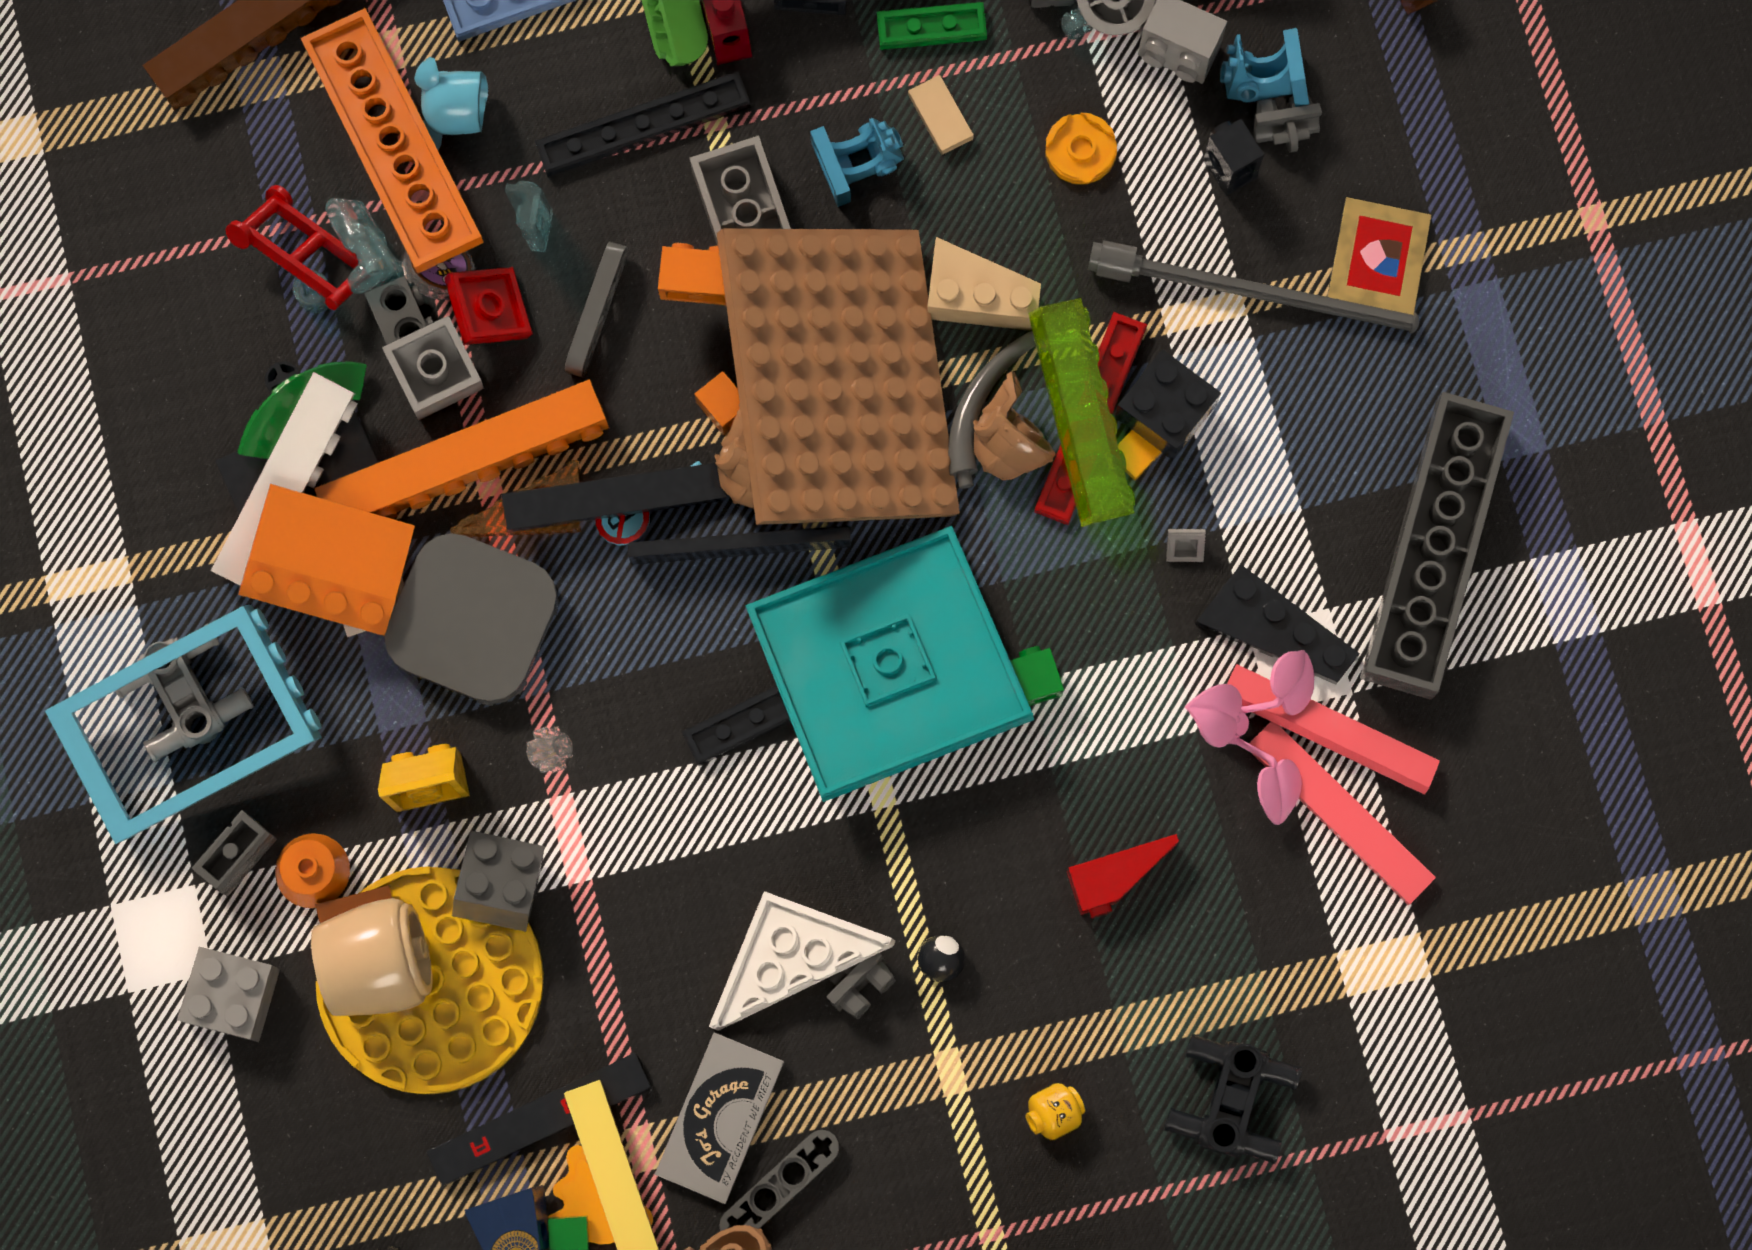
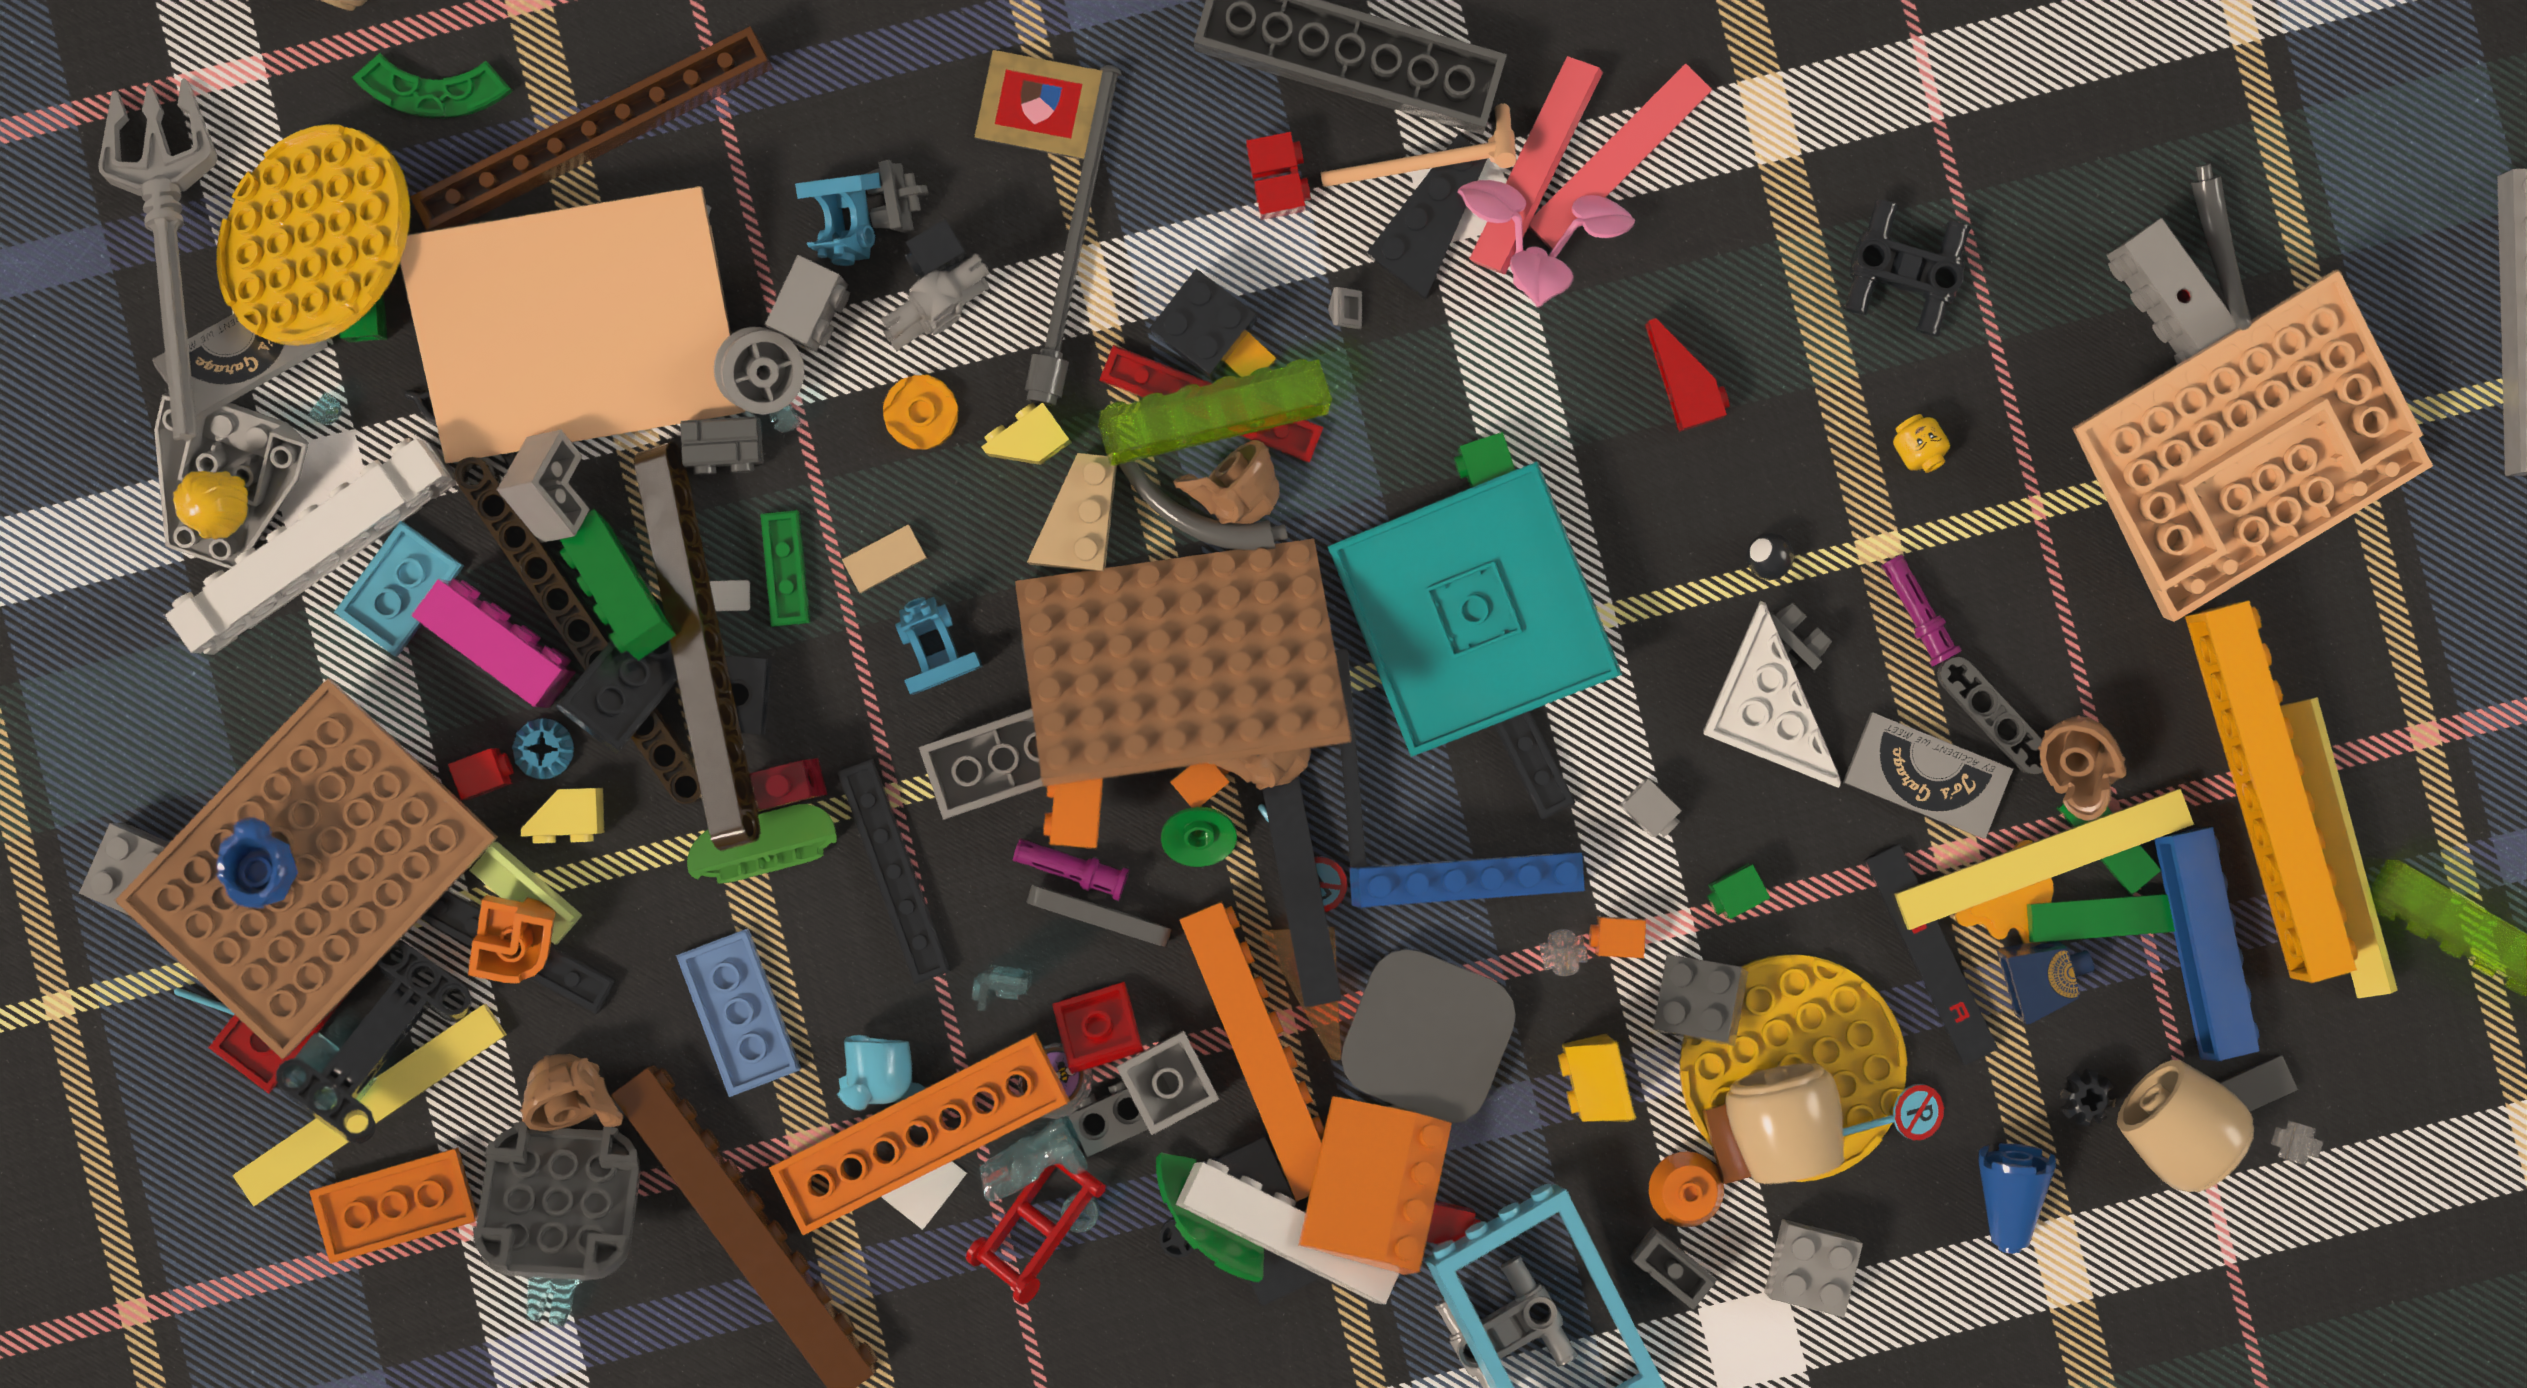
camera: 90 degrees left, 10 degrees up
(291, 633) = (1449, 1222): none -> red brick
(297, 1197) = (2014, 1192): none -> blue cone
(337, 153) = (926, 1194): none -> white sticker
(379, 1101) = (1915, 1114): none -> piece
(563, 804) = (1618, 937): none -> orange brick
(605, 922) = (1737, 892): none -> green brick
(622, 651) = (1466, 879): none -> blue brick
(637, 299) = (1087, 873): none -> magenta pin
(670, 400) = (1198, 836): none -> green dish
(689, 837) = (1651, 809): none -> light grey brick
(870, 1118) = (1928, 625): none -> magenta pin
(1056, 247) = (1029, 439): none -> light yellow slope
(1184, 150) = (935, 302): none -> light grey piece
(1332, 475) = (1273, 157): none -> red piece
(1342, 686) = (1499, 150): none -> light nougat bar

